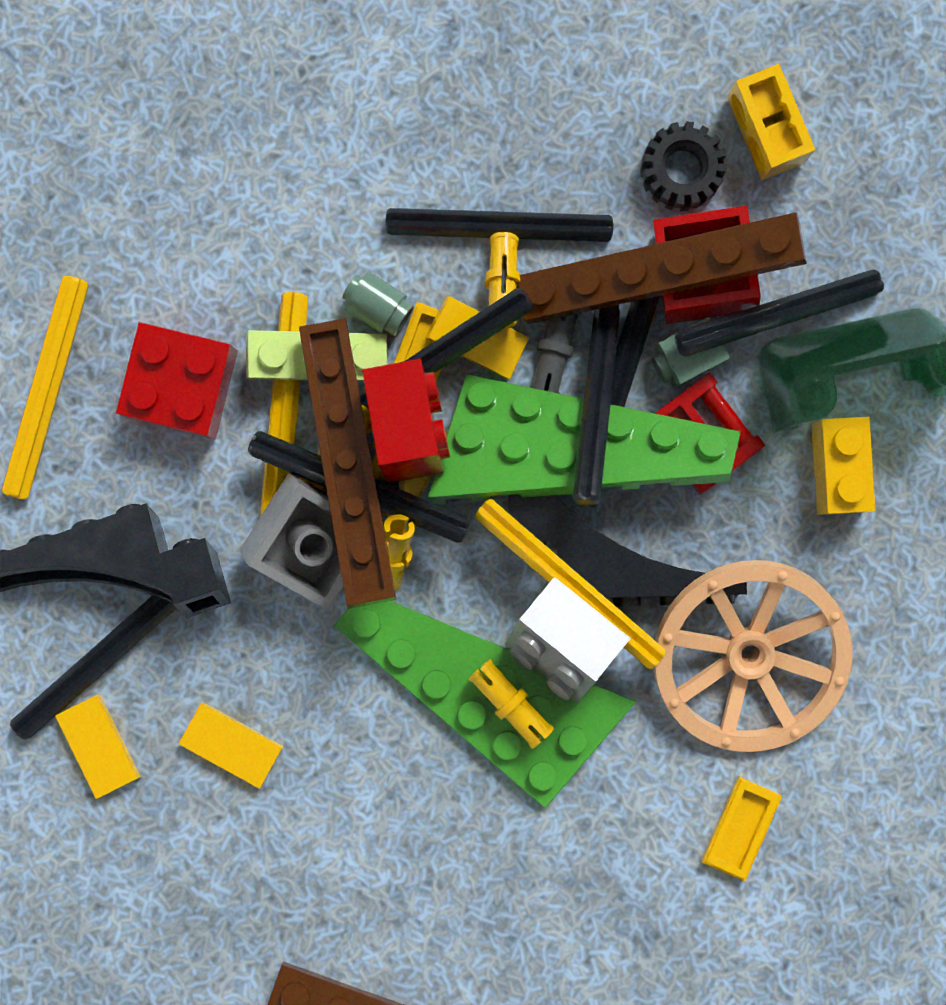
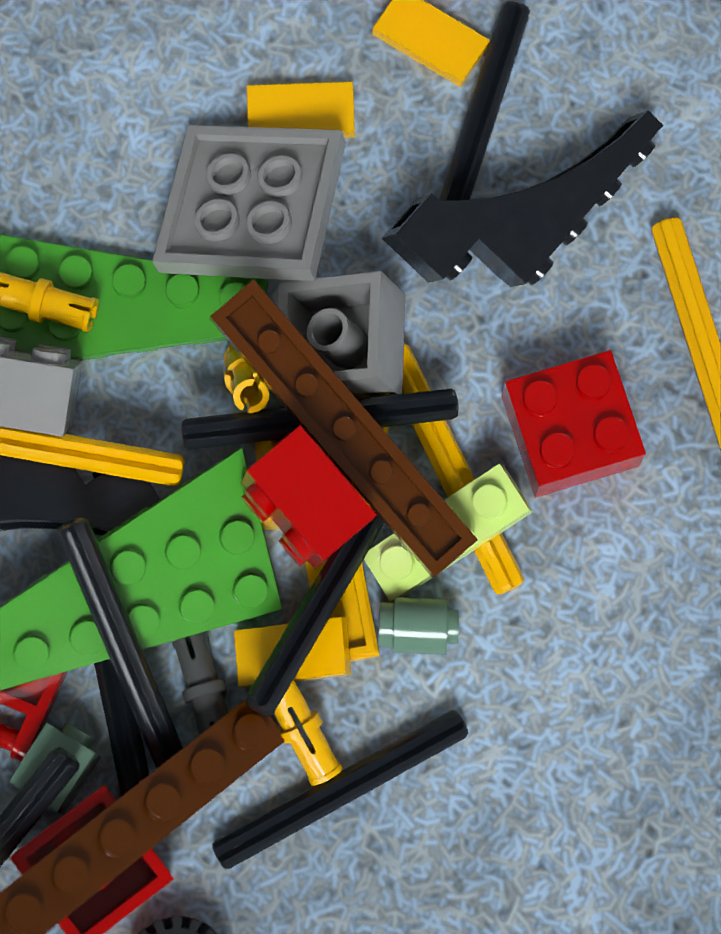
camera: 150 degrees right, 10 degrees down
(311, 687) = (250, 202): none -> light grey plate

